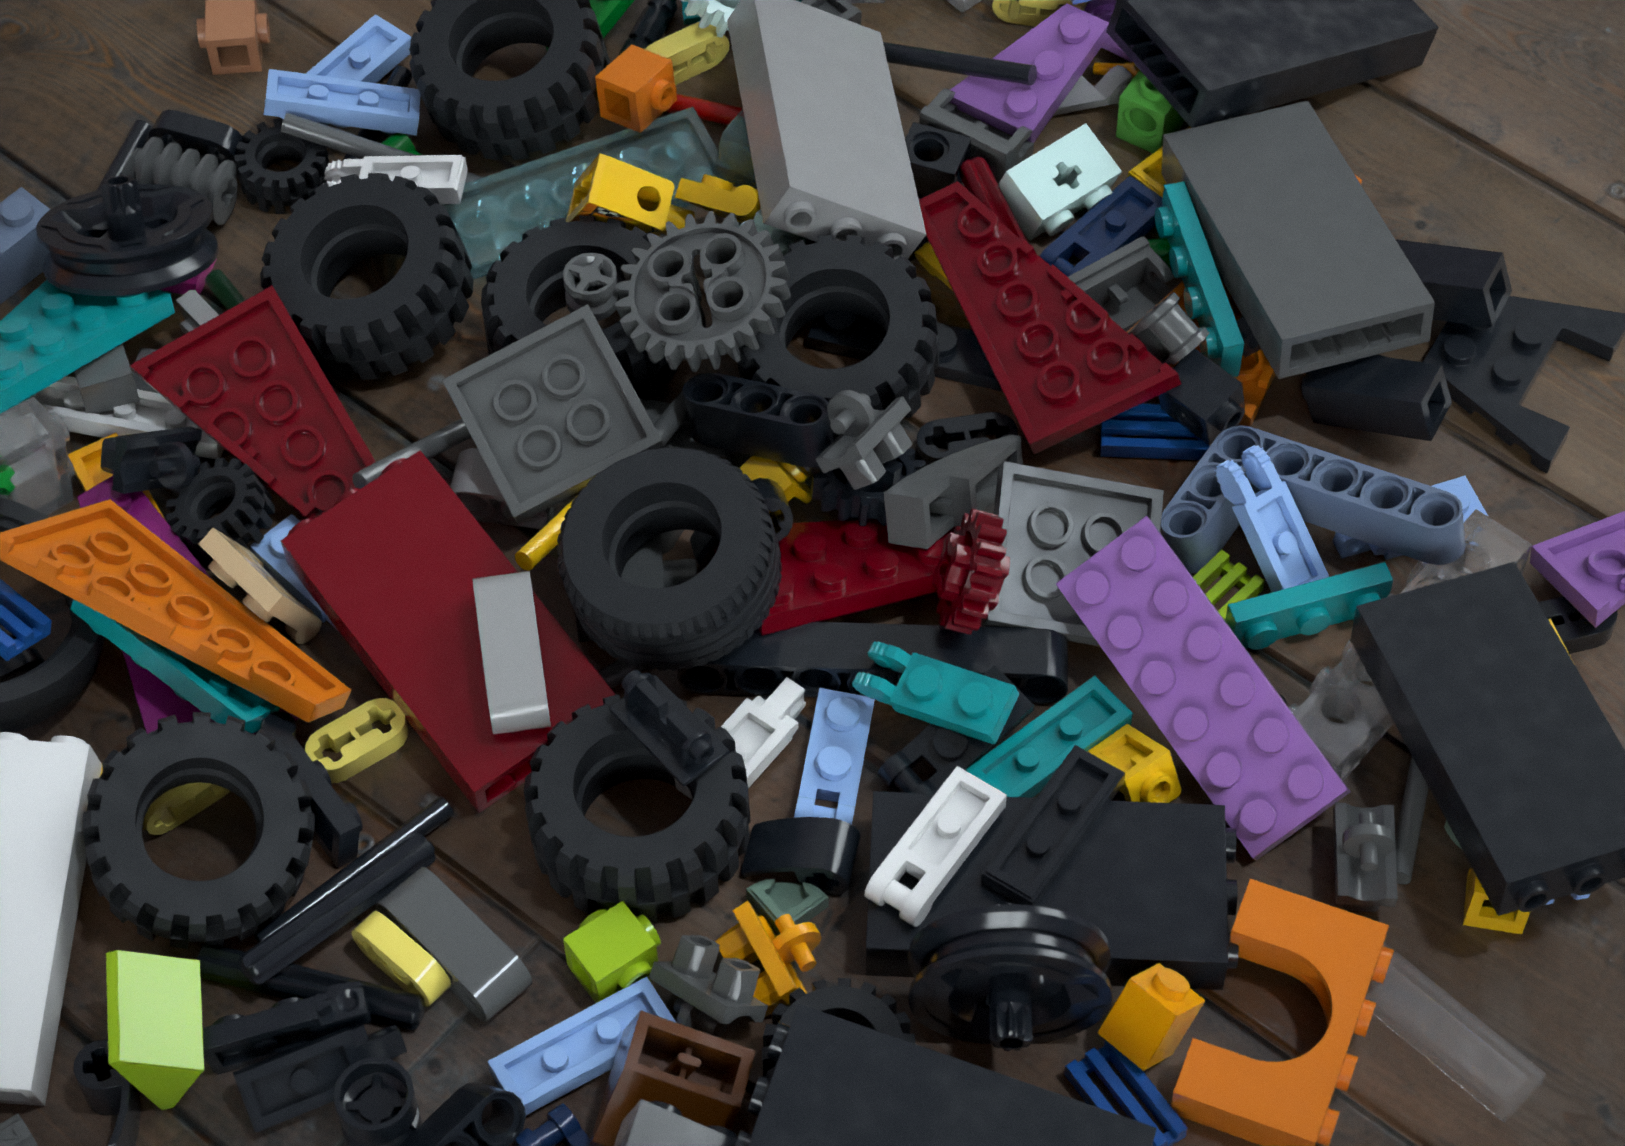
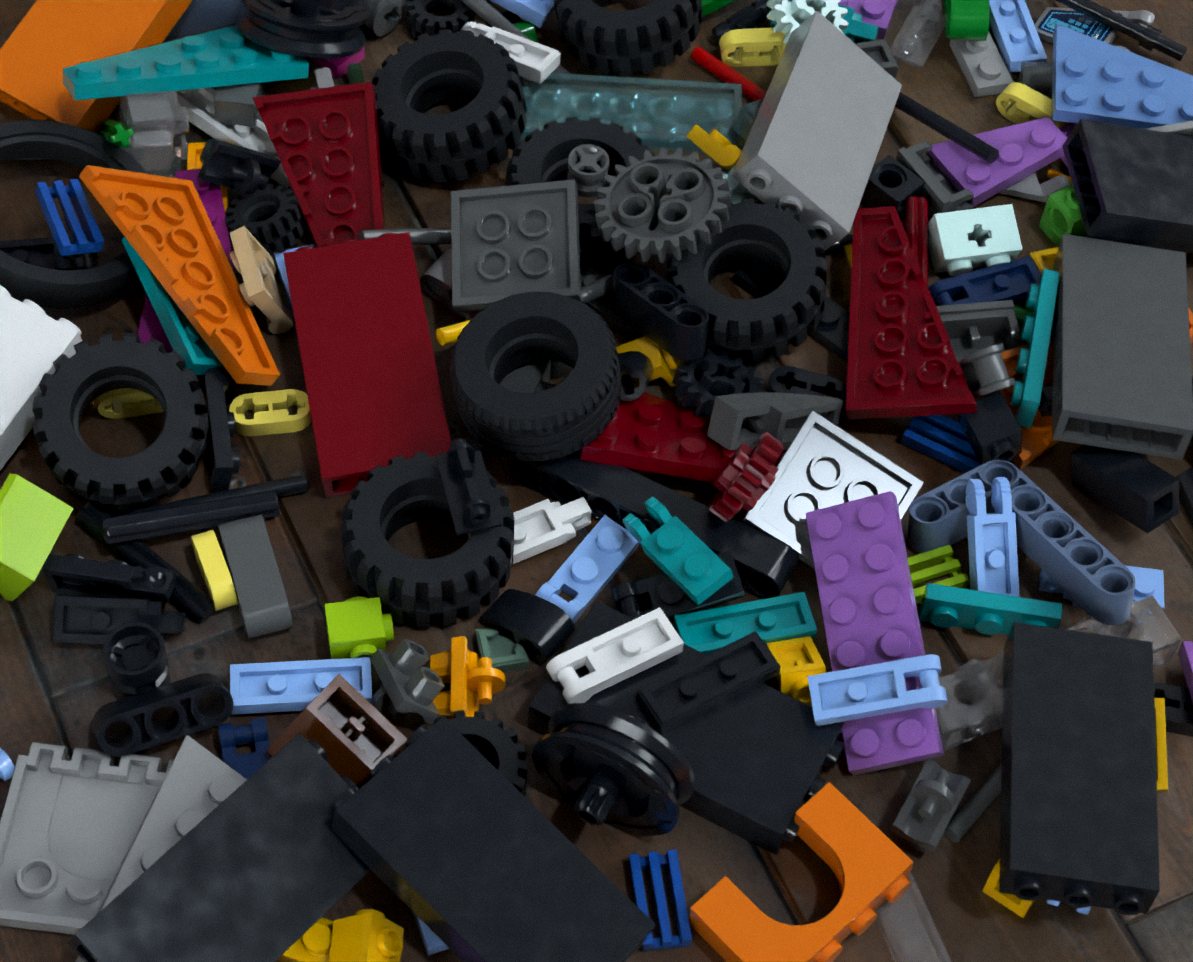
camera: 20 degrees right, 0 degrees up
(511, 652) = (393, 394): light grey beam -> none
(625, 194) = (653, 122): yellow torso -> none
(636, 88) = (705, 54): orange brick -> none
(865, 437) = (723, 345): dark grey hips -> none
(1151, 1016) = (707, 847): light orange brick -> none
(1246, 751) = (876, 690): none -> light blue plate

